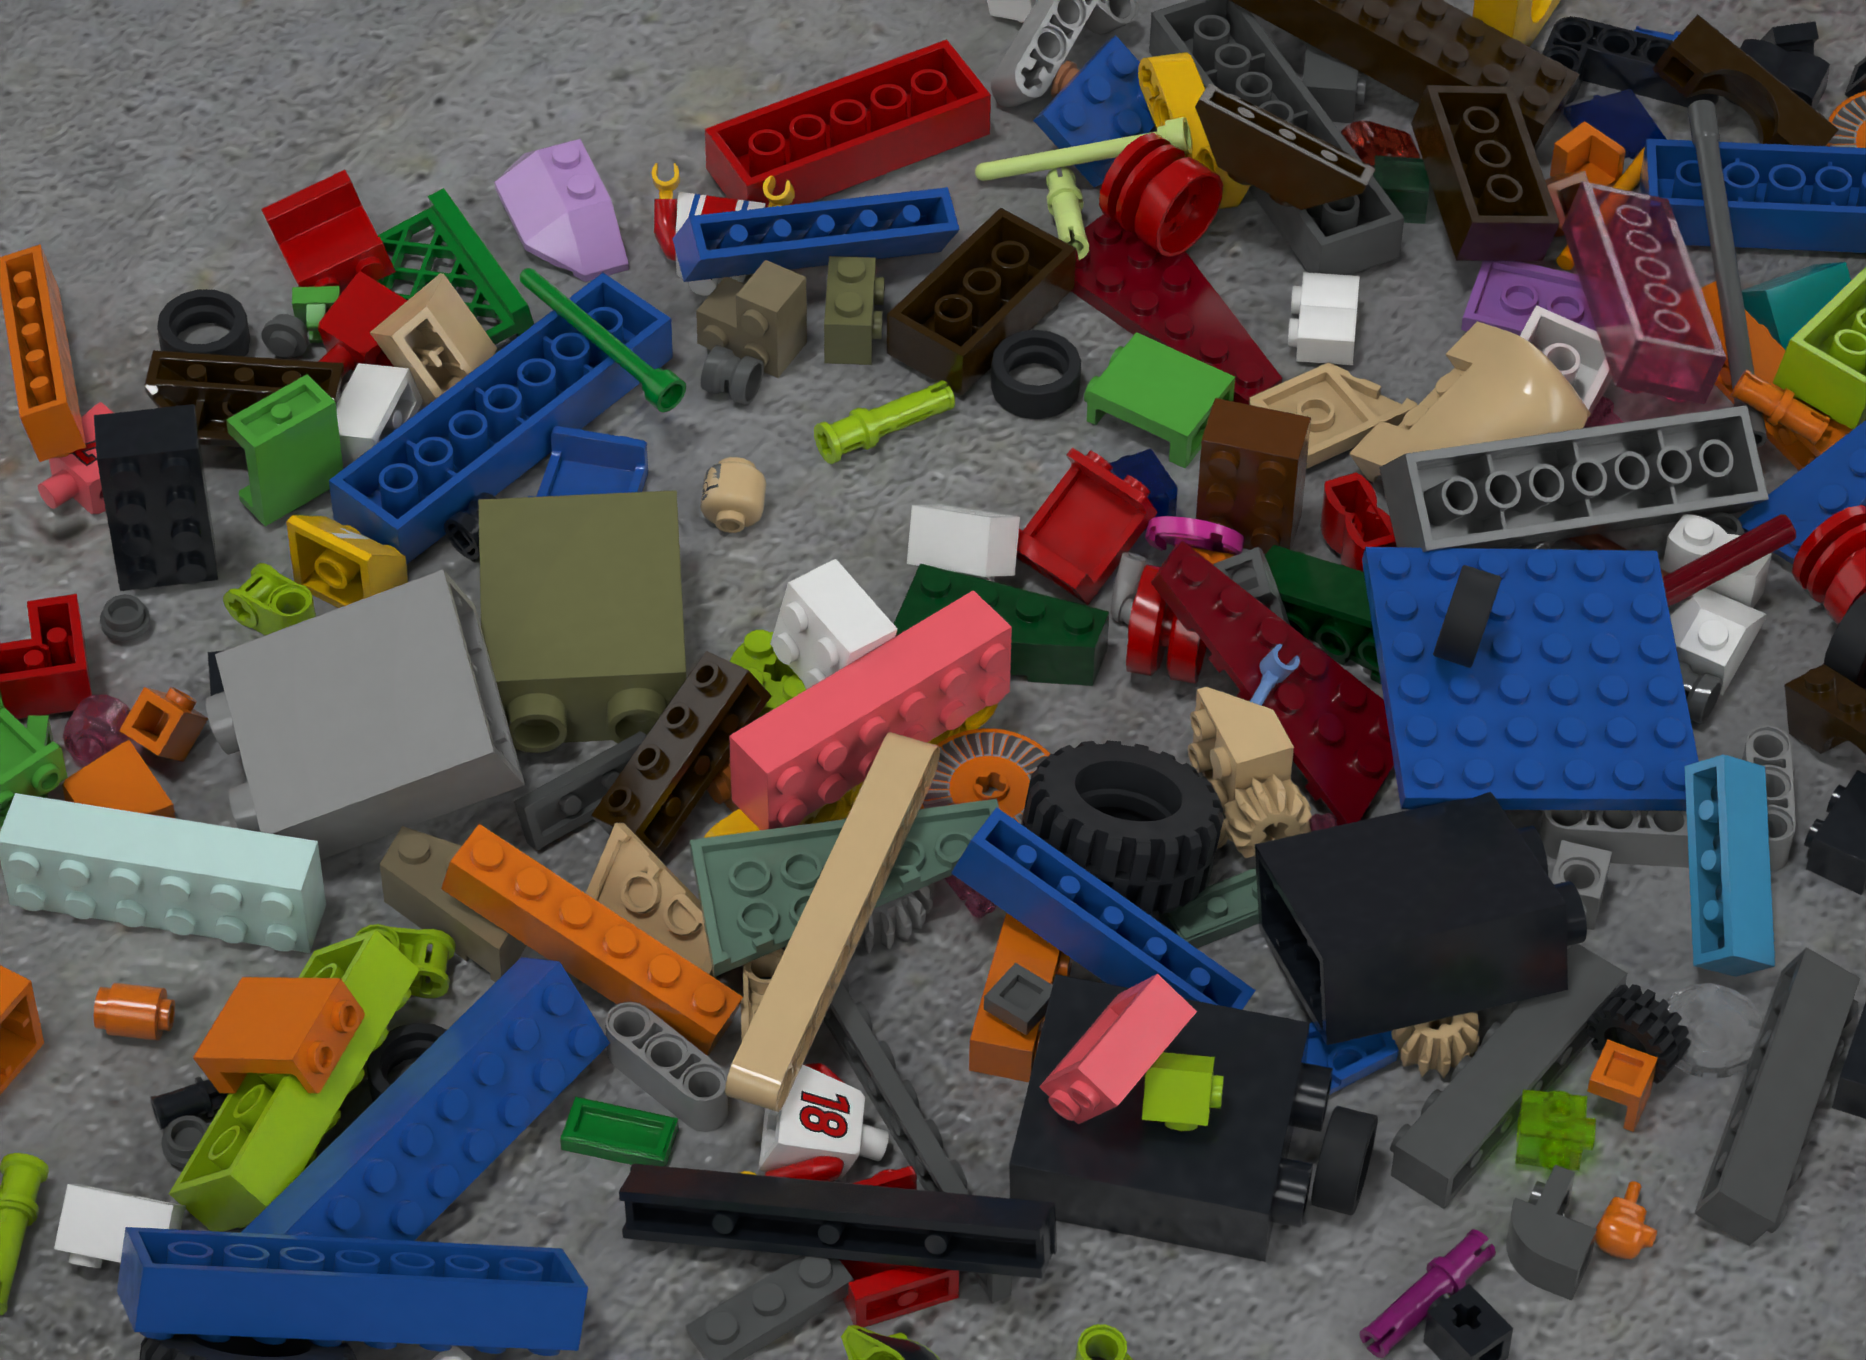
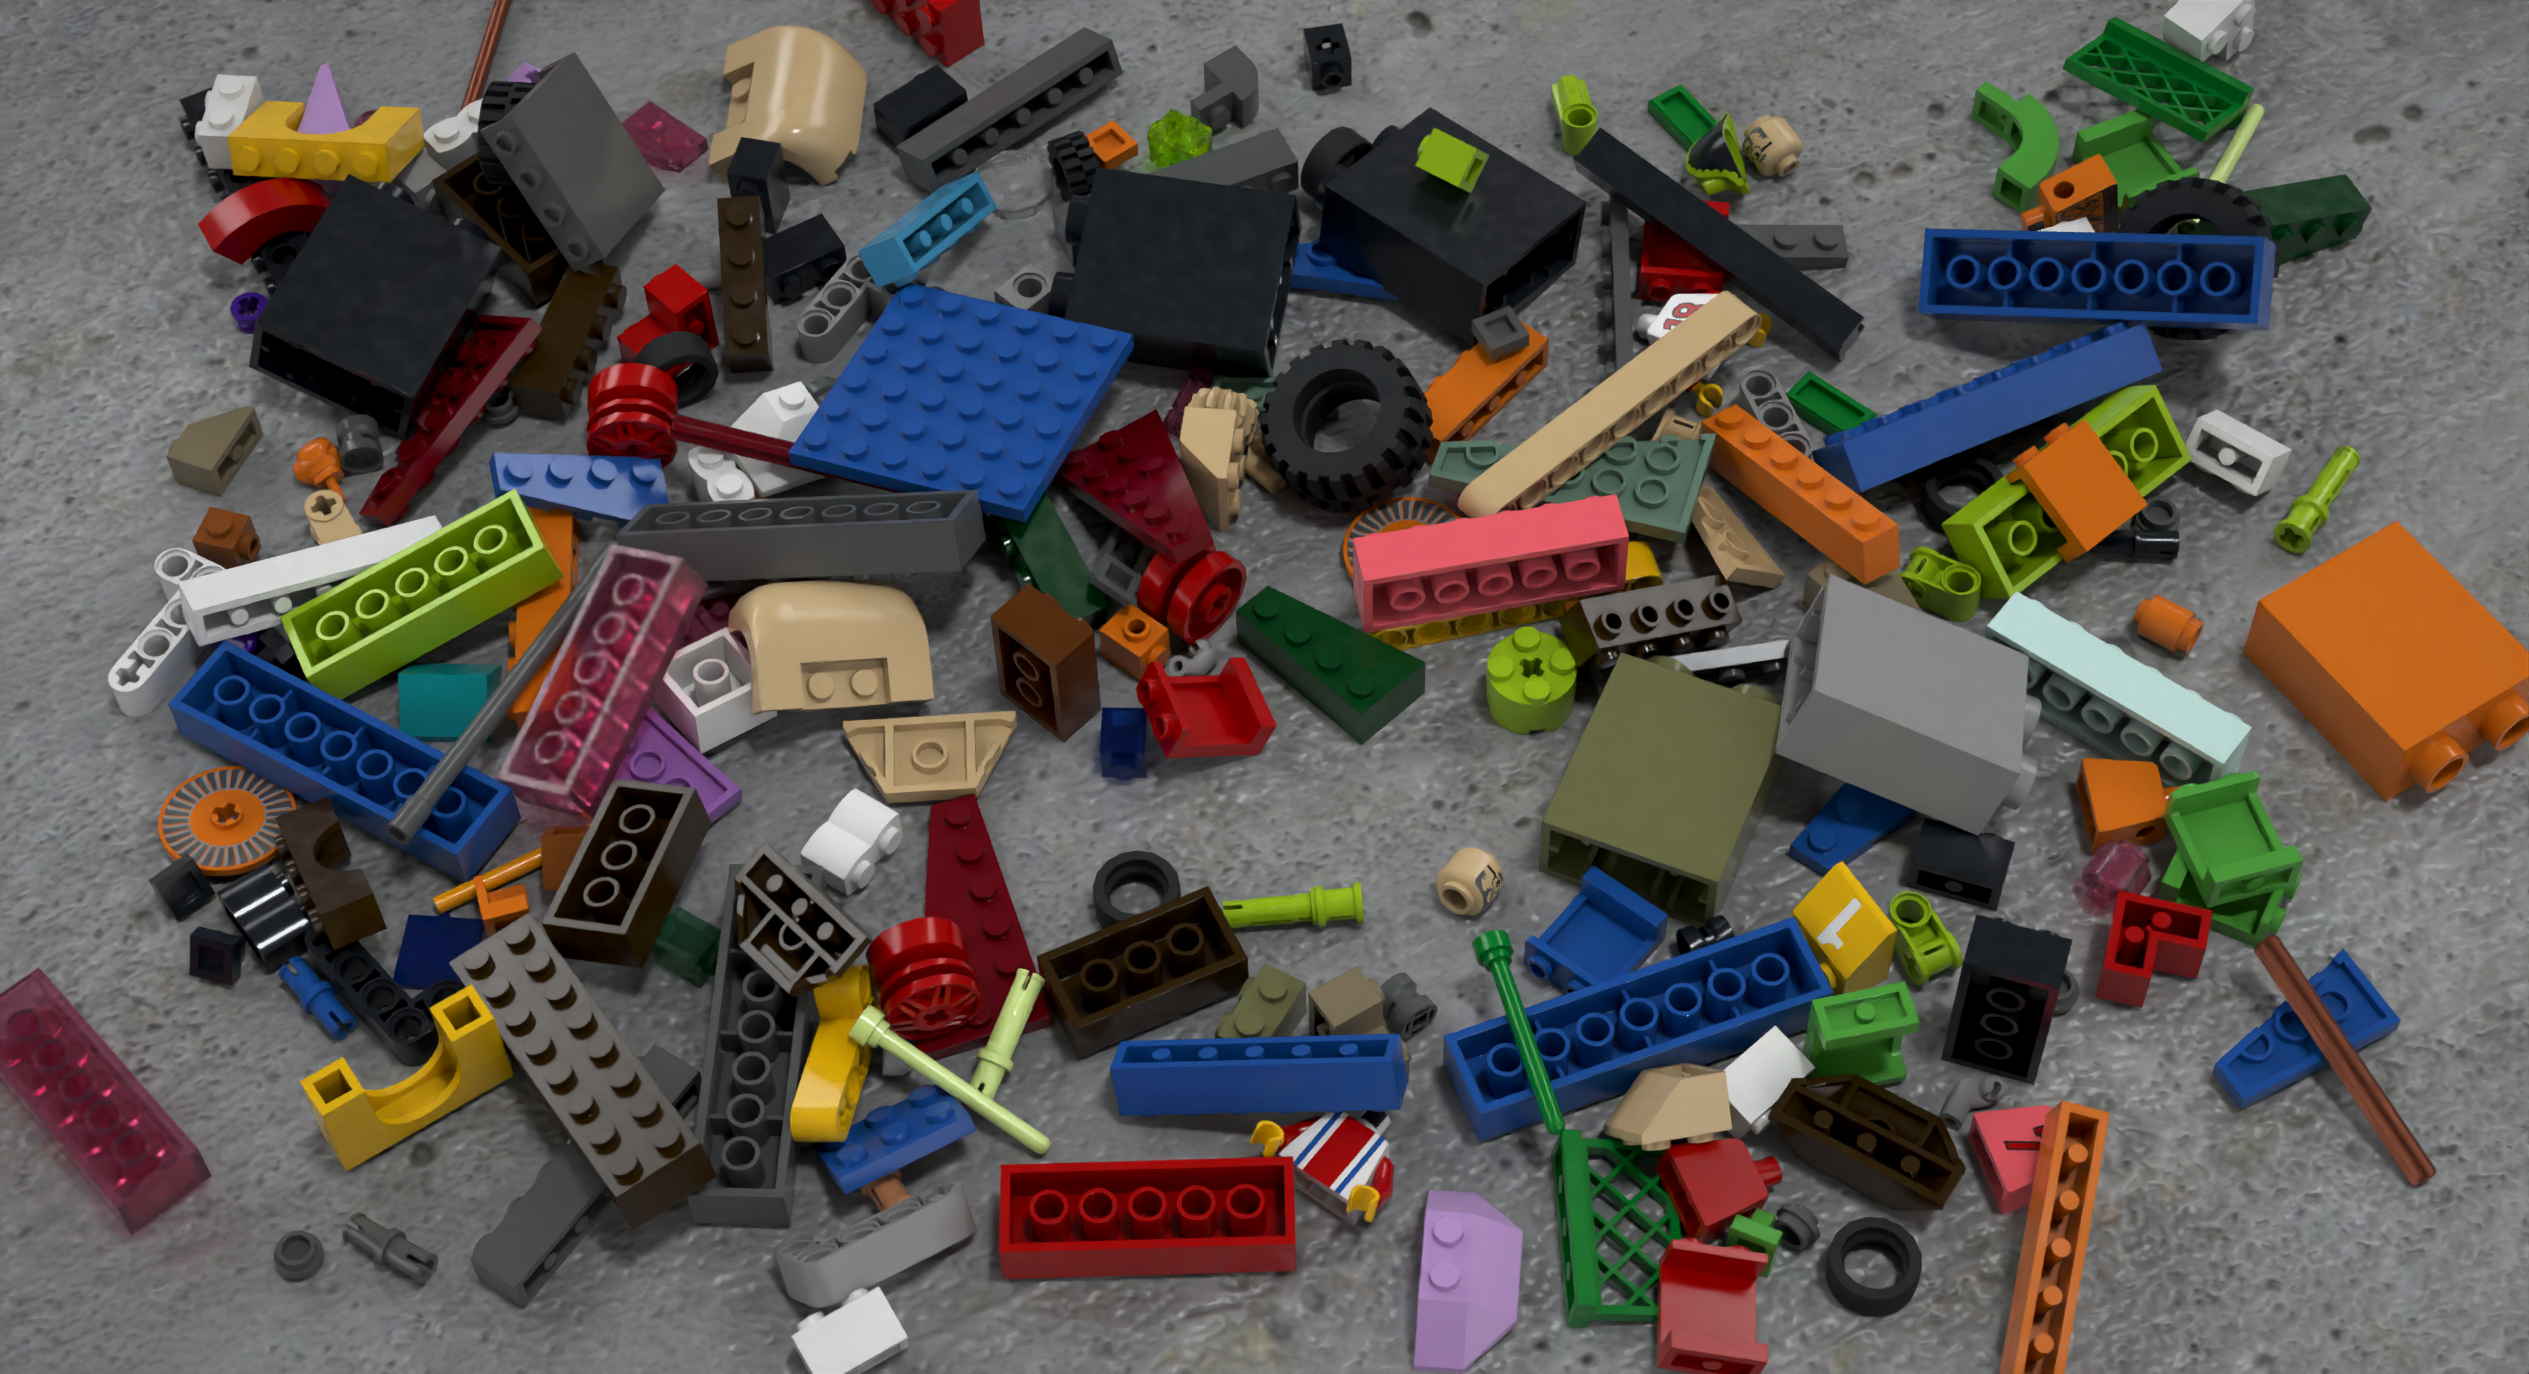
camera: 150 degrees left, 5 degrees up
(164, 722) = (2061, 844): orange brick -> none
(827, 624) = (1493, 614): white brick -> none
(963, 540) = (1311, 726): white brick -> none
(1087, 915) = (1438, 364): blue brick -> none
(1117, 1050) = (1448, 185): coral window -> none
(1159, 393) = (1051, 821): bright green panel -> none
(1193, 532) = (1122, 657): dark pink tile -> none
(1273, 672) = (1153, 475): medium blue hand -> none
(1353, 519) = (981, 596): red brick -> none
(1382, 140) = (676, 987): clear red beam -> none
(1442, 1276) = (1331, 95): magenta pin -> none
(1467, 616) = (987, 377): black tyre -> none
(1622, 1226) = (1174, 83): orange piece -> none
(1780, 407) = (578, 544): orange pin -> none

